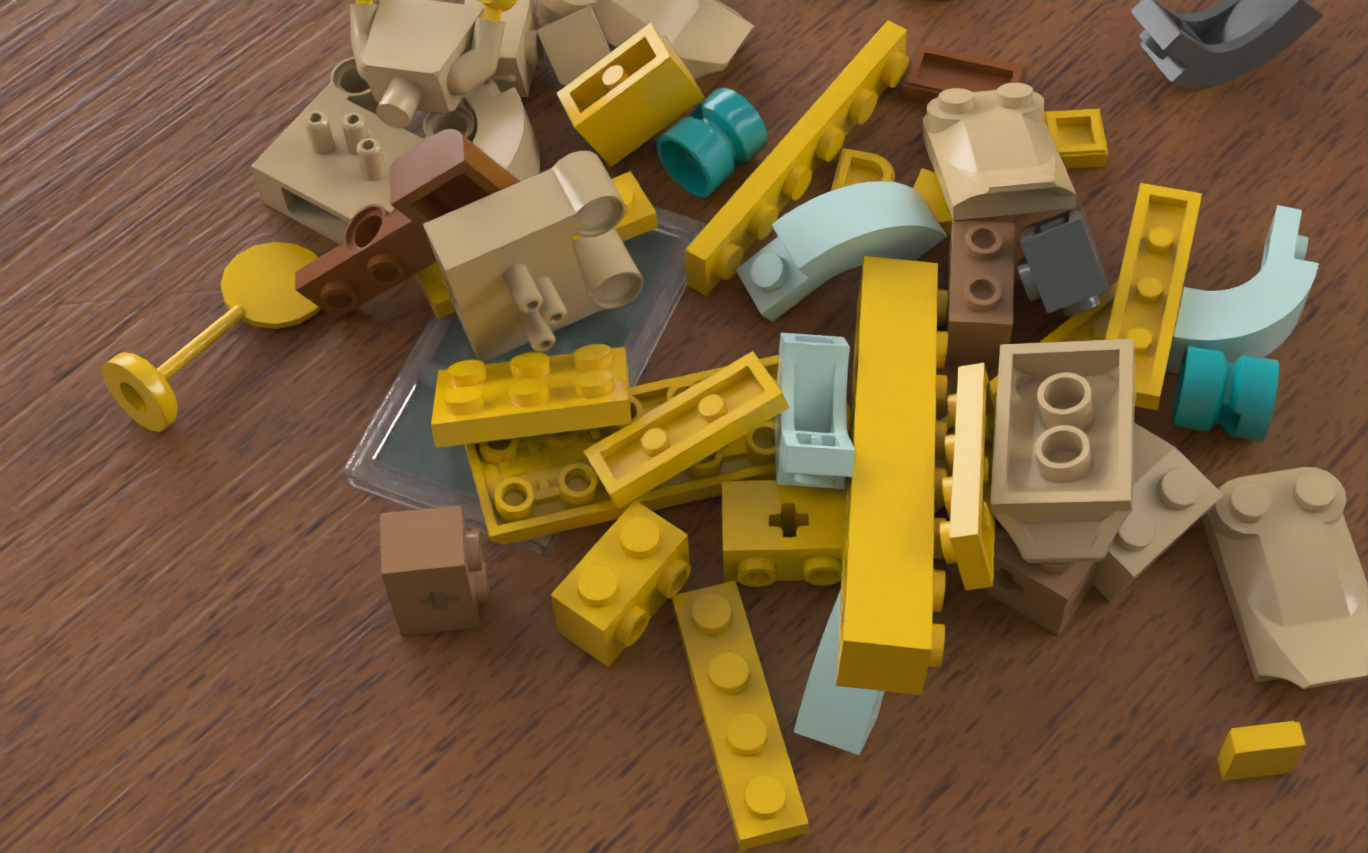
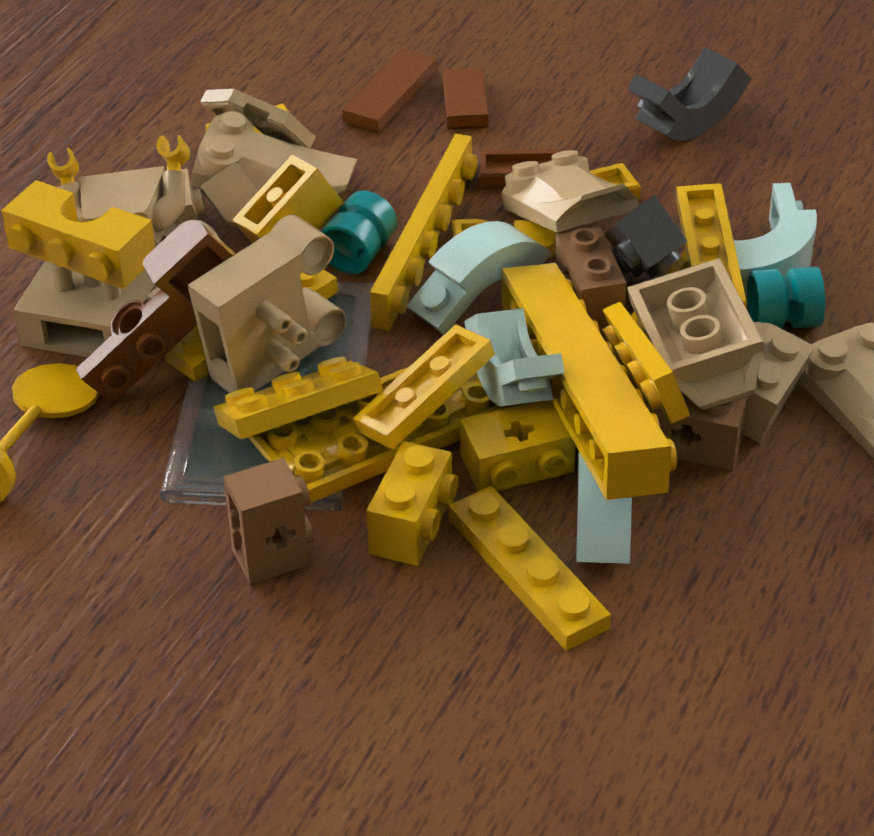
camera: 20 degrees left, 15 degrees down
(366, 123) = (46, 226): none -> yellow arch

